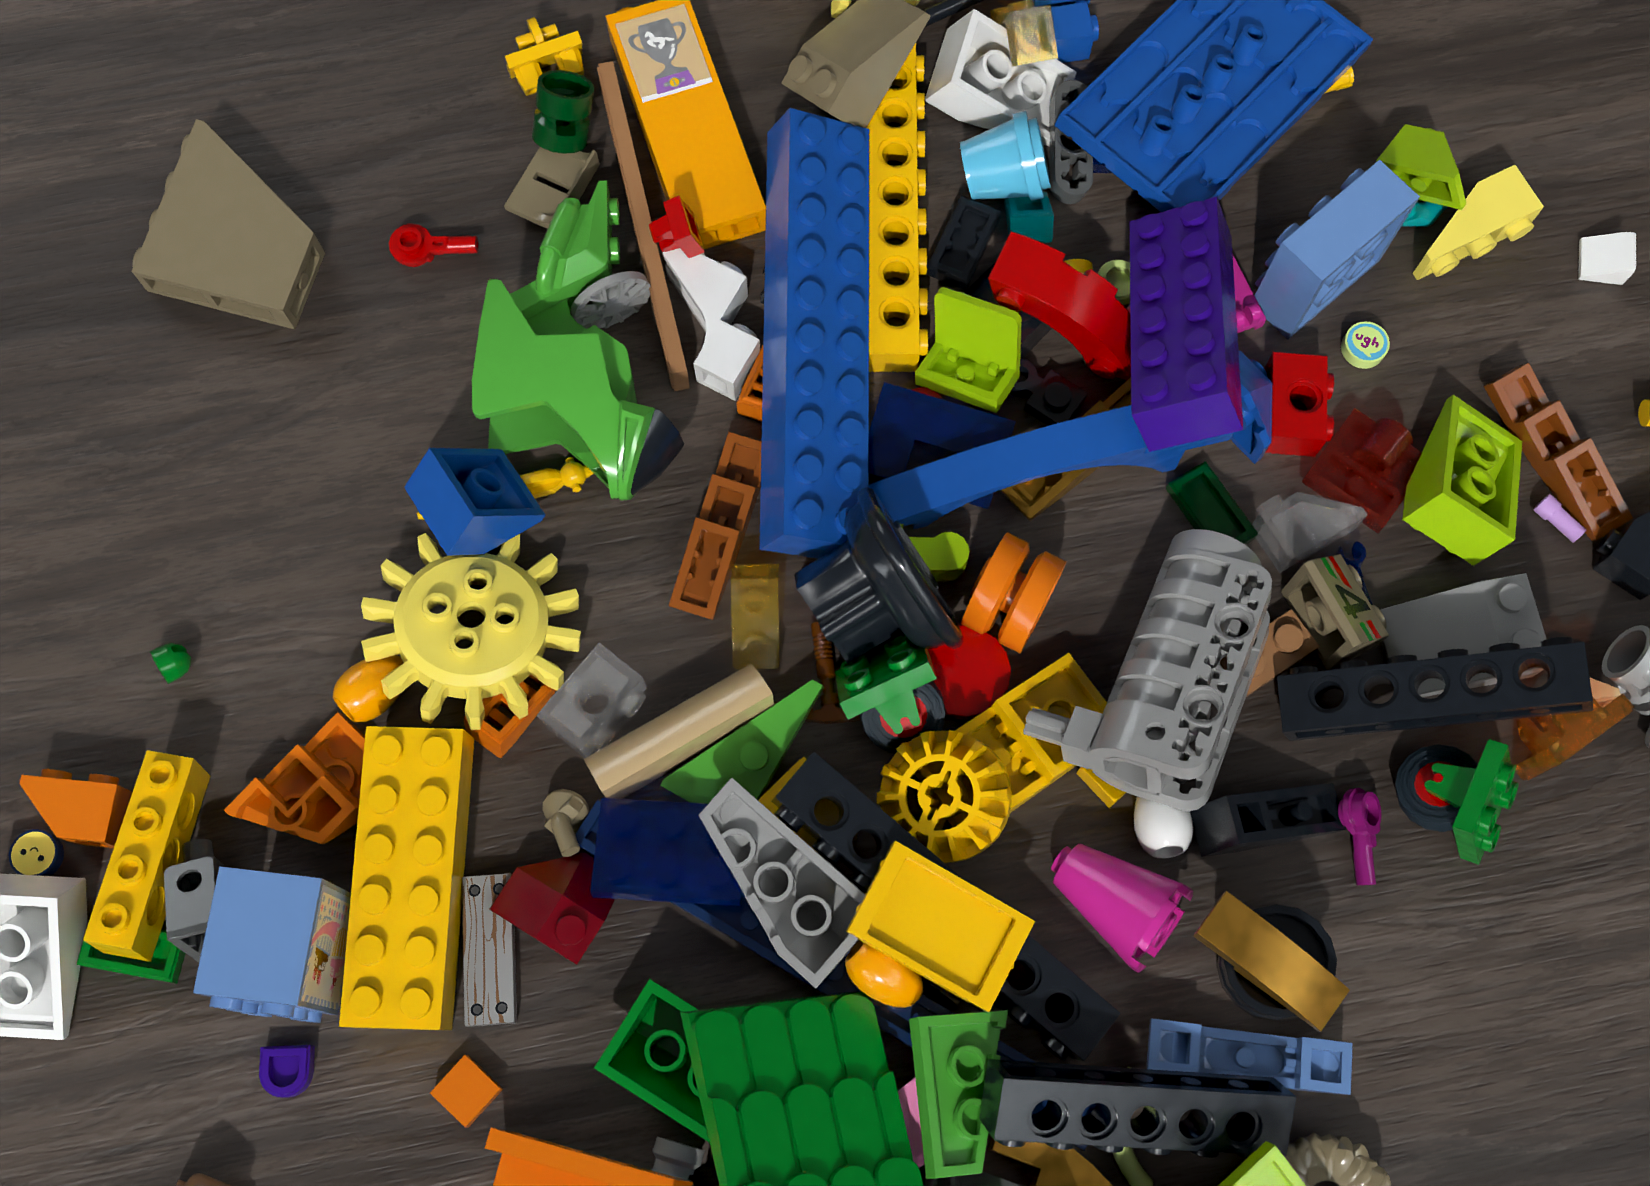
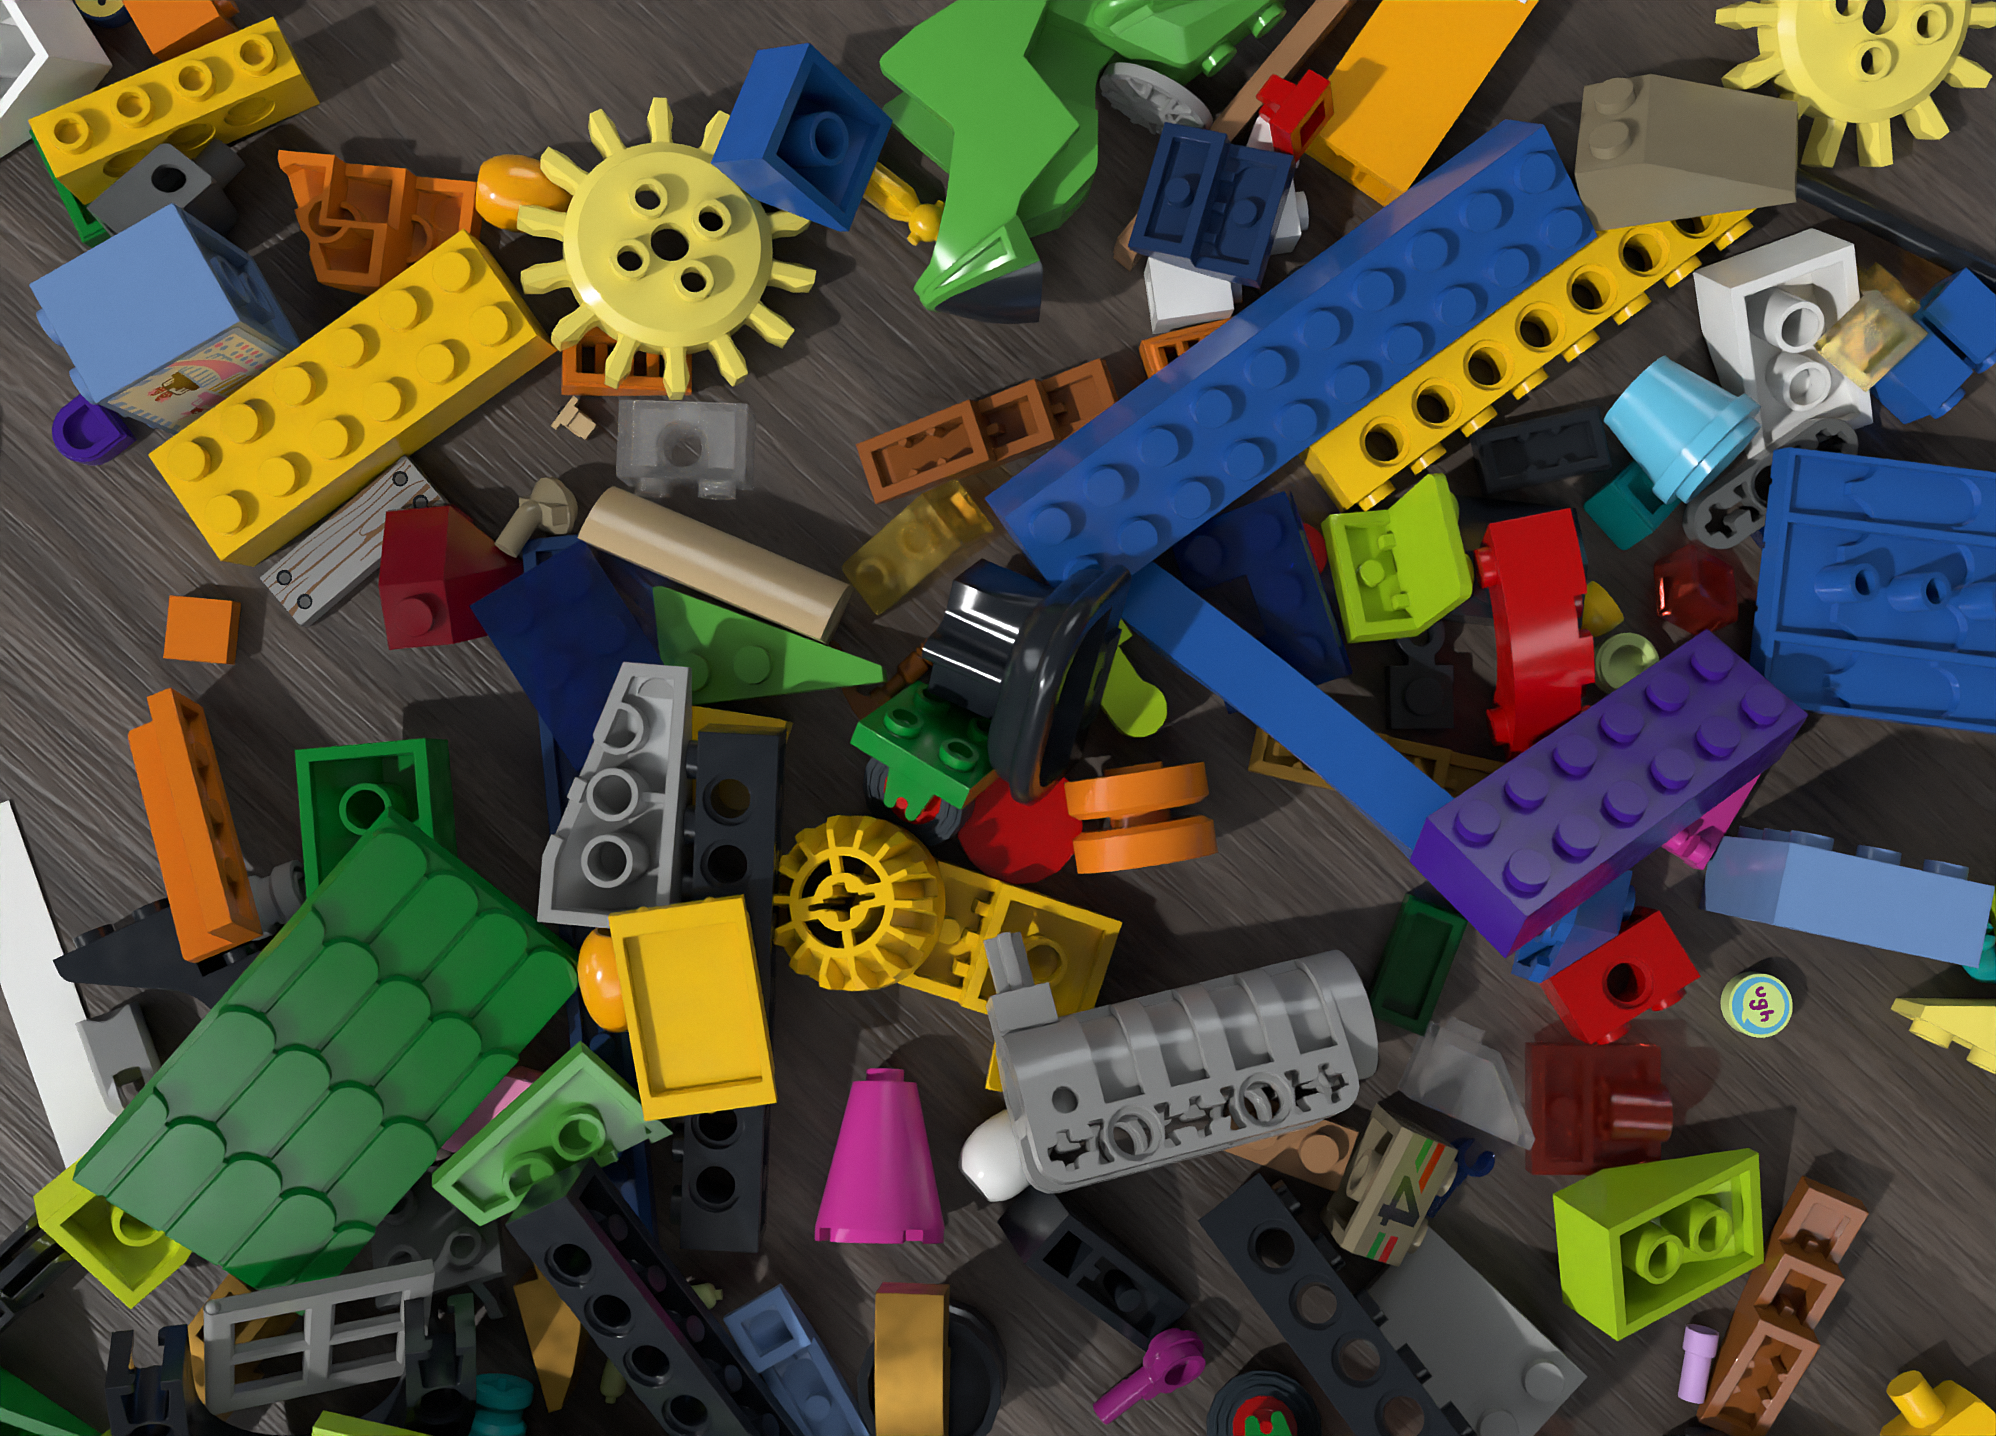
camera: 60 degrees right, 15 degrees up
(523, 760) = (574, 420): none -> tan piece
(693, 308) = (1212, 205): none -> dark blue slope
(1102, 218) = (1695, 590): none -> clear red slope

